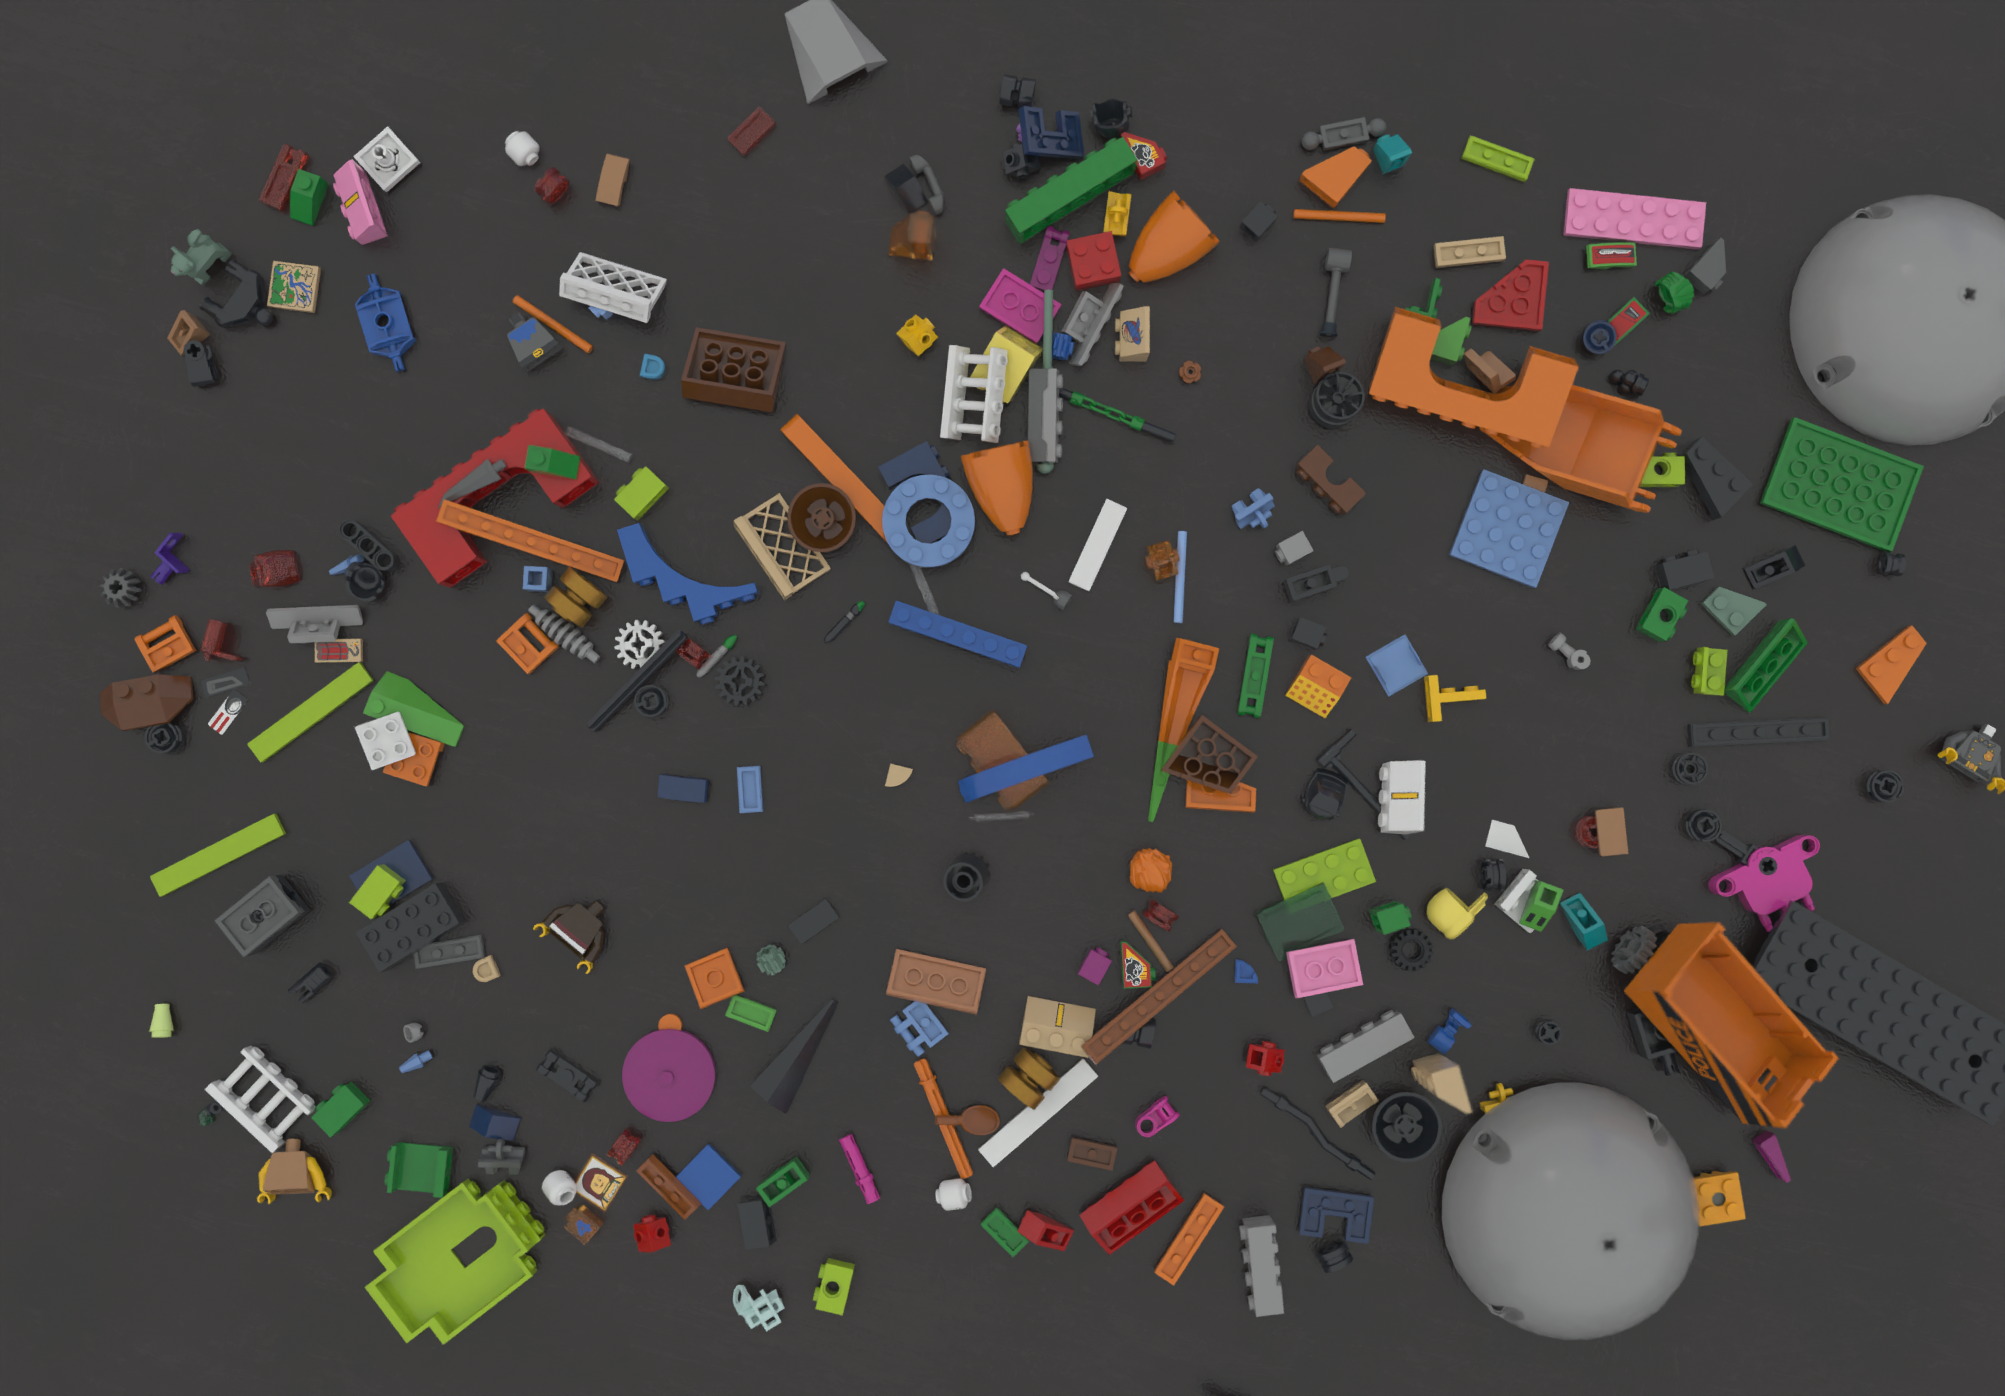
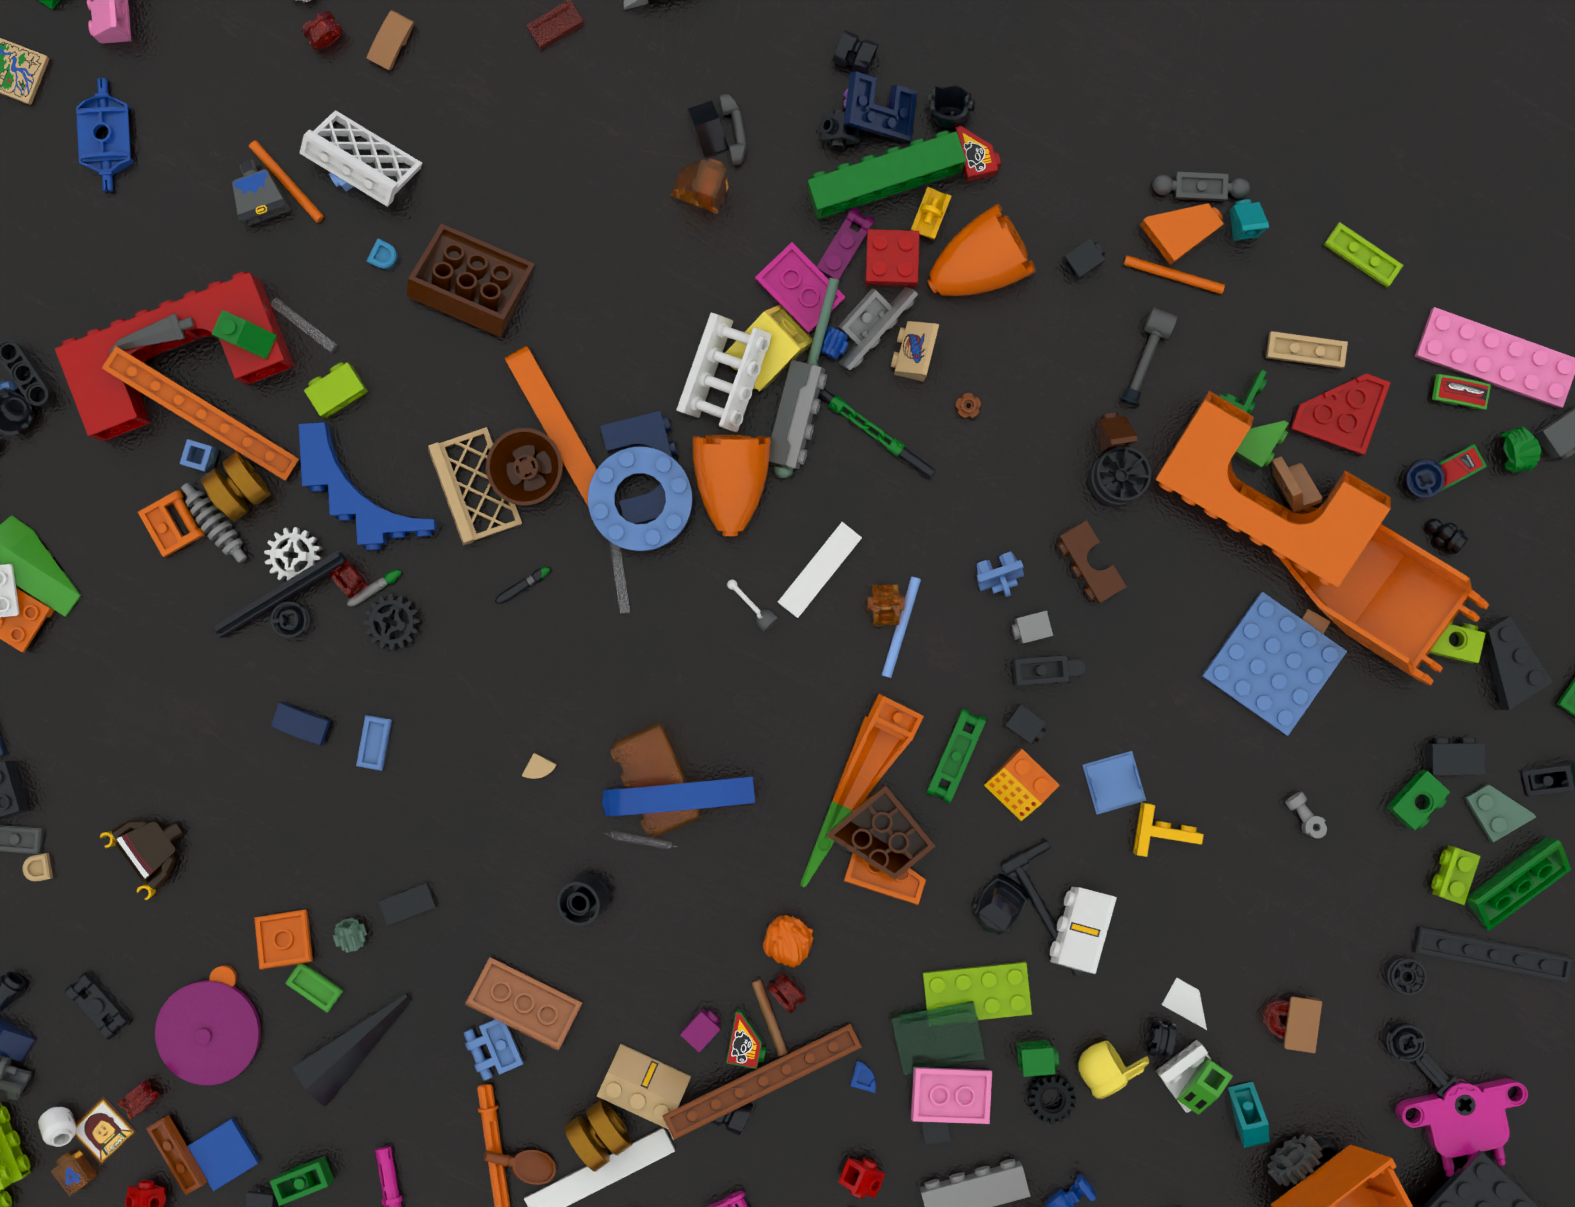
camera: 15 degrees right, 0 degrees up
(917, 334) = (680, 291): yellow brick -> none
(957, 634) = (641, 630): blue arch -> none

